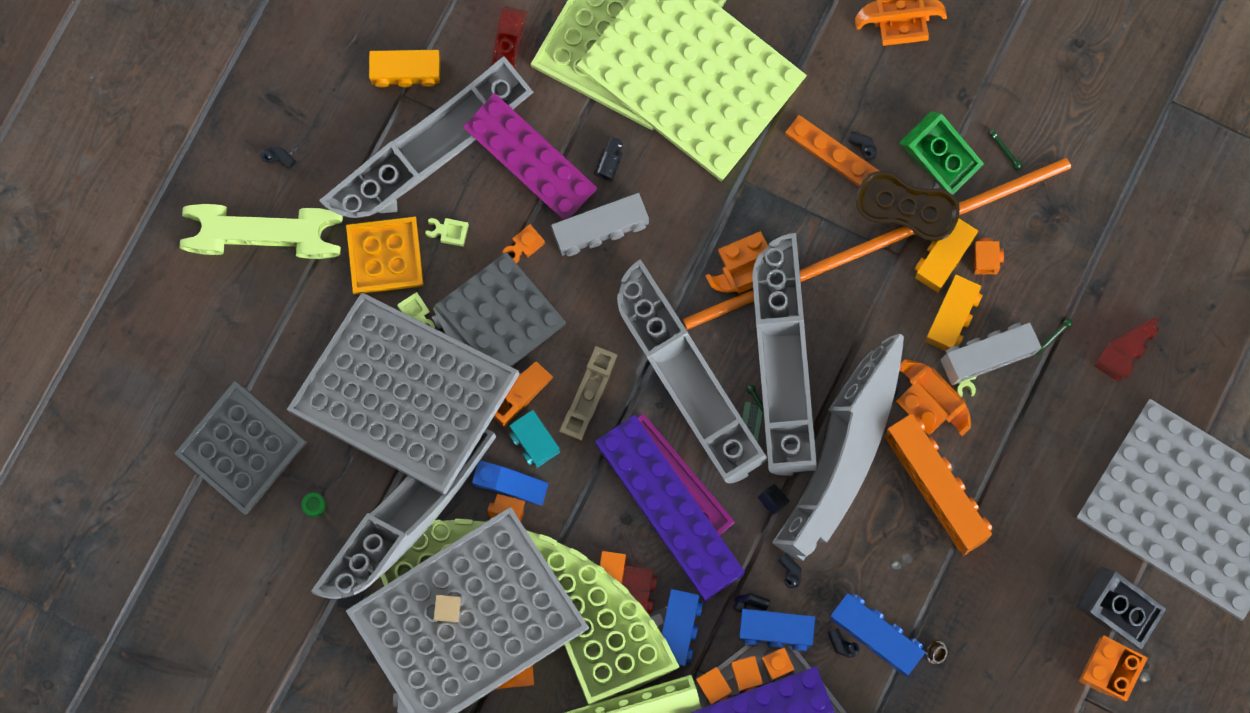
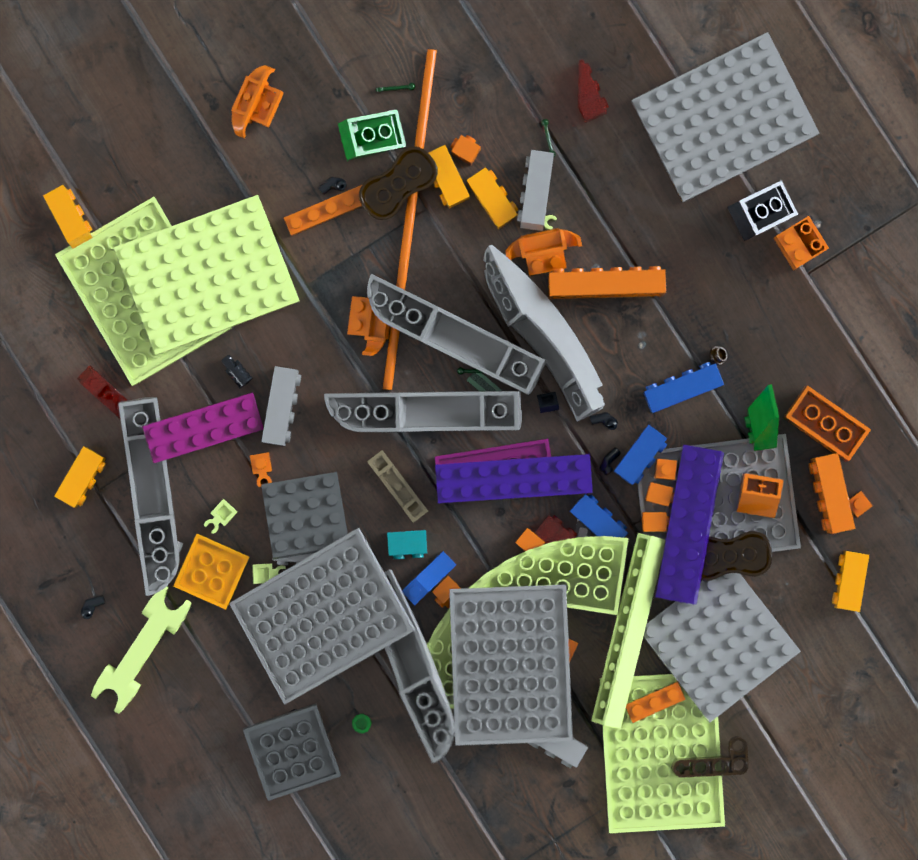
camera: 60 degrees left, 10 degrees up
(447, 608) = (496, 674): tan tile -> none
(522, 393) = (366, 522): orange slope -> none
(843, 647) = (675, 417): black arm -> none

